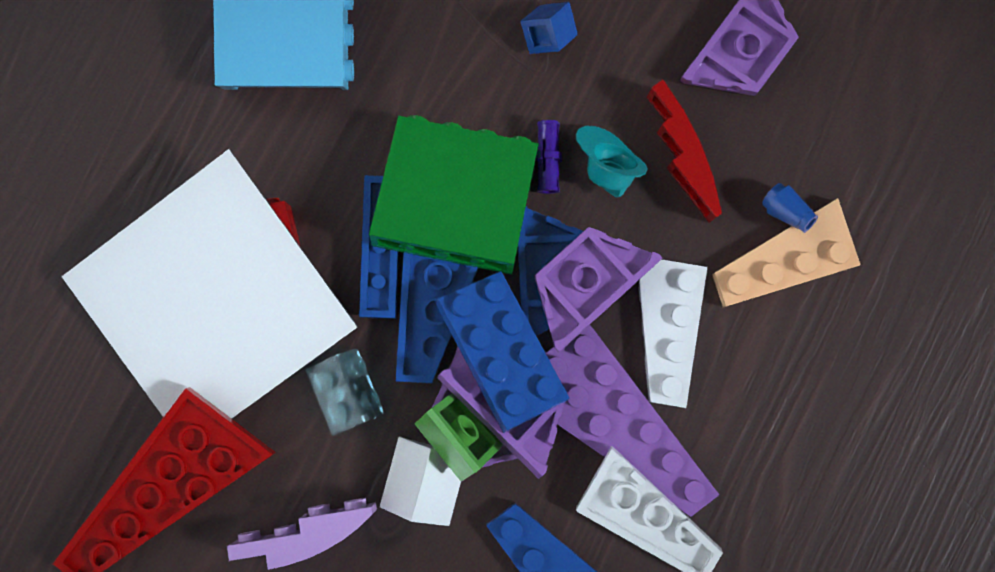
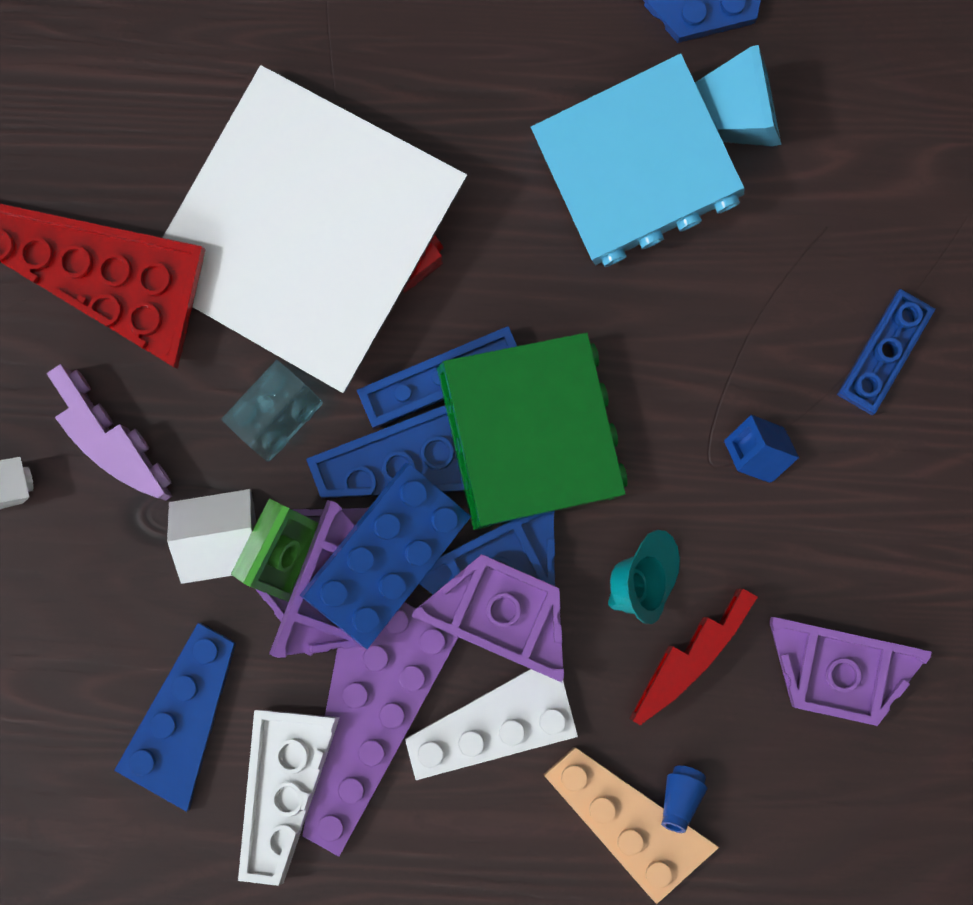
camera: 65 degrees right, 0 degrees up
(548, 156) = (619, 511): dark purple pin -> none

